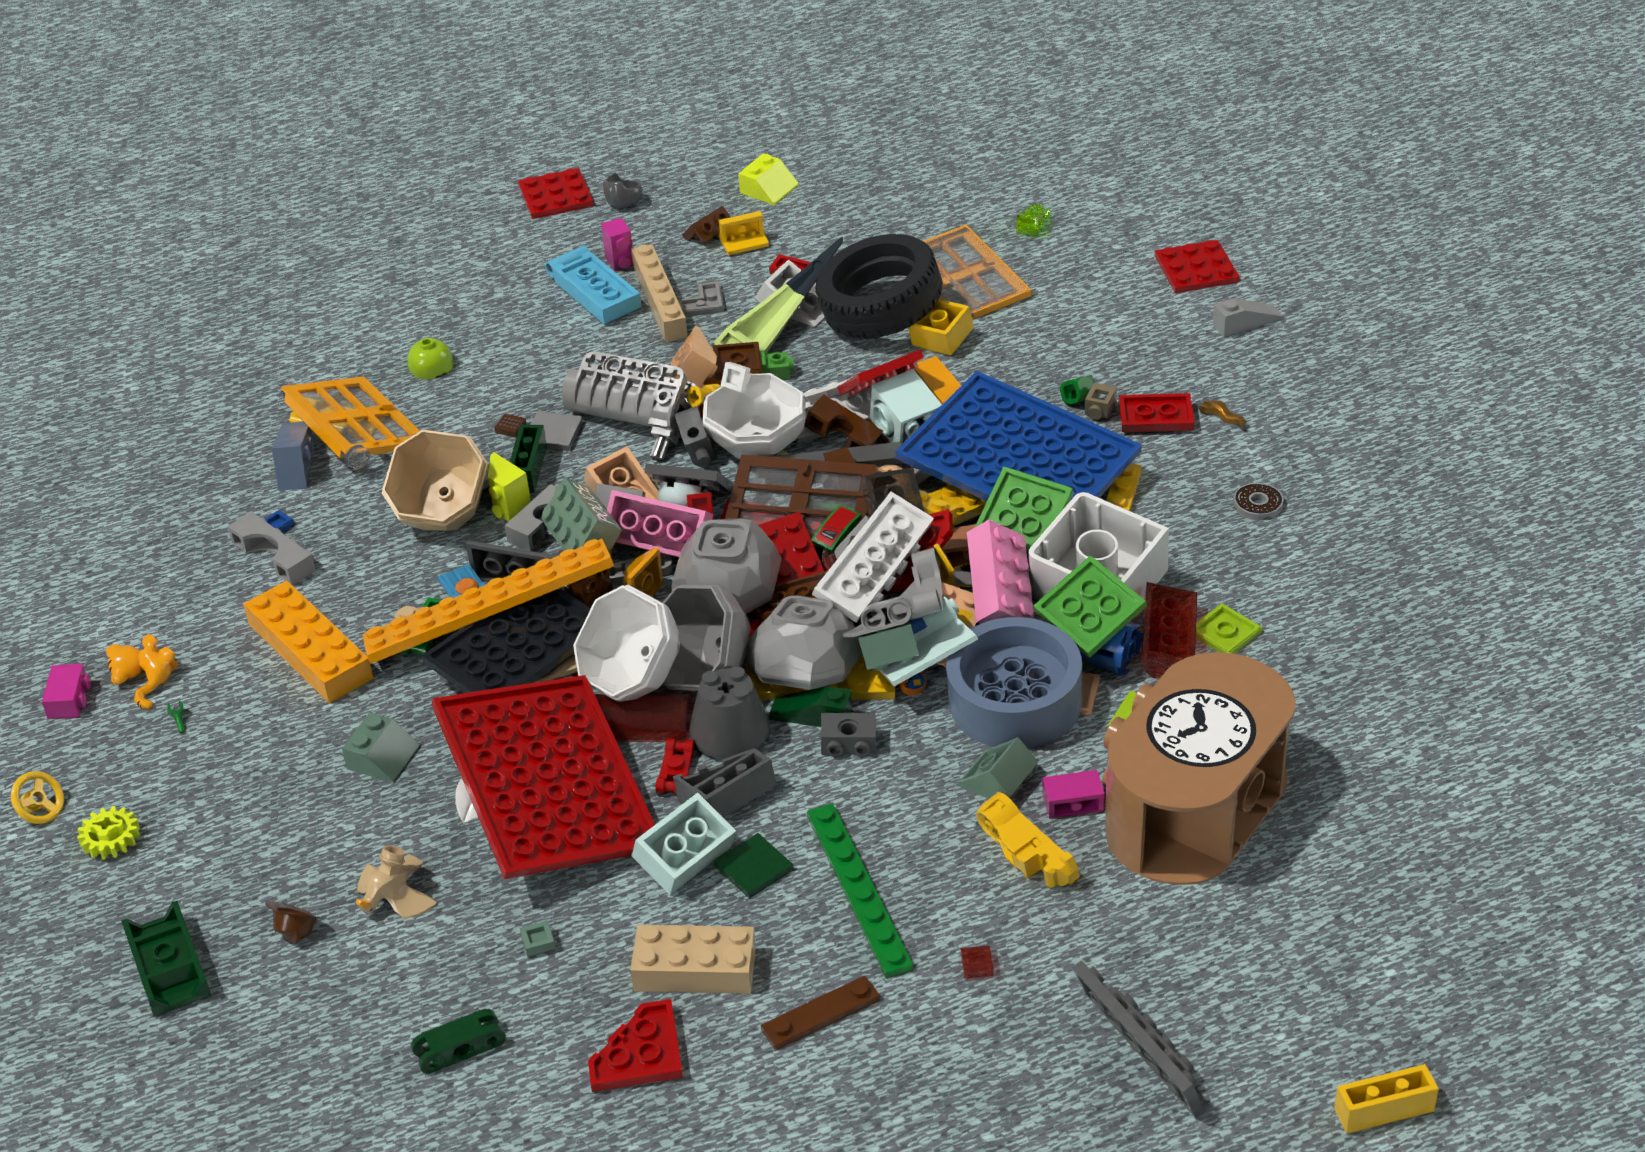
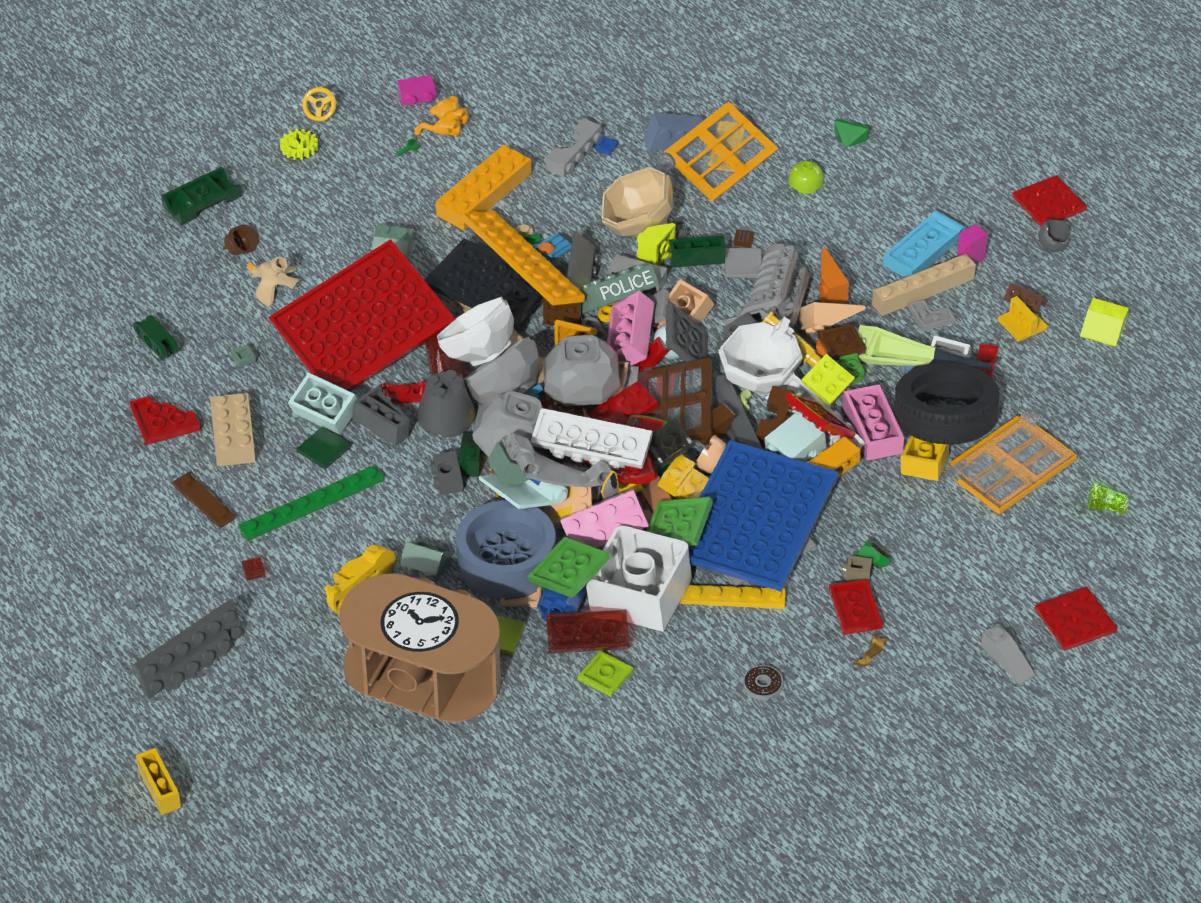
camera: 75 degrees right, 5 degrees up
(368, 315) = (850, 133): none -> green slope
(637, 344) = (833, 283): none -> orange slope
(811, 368) = (827, 380): none -> neon yellow plate
(859, 352) = (873, 422): none -> bright pink brick

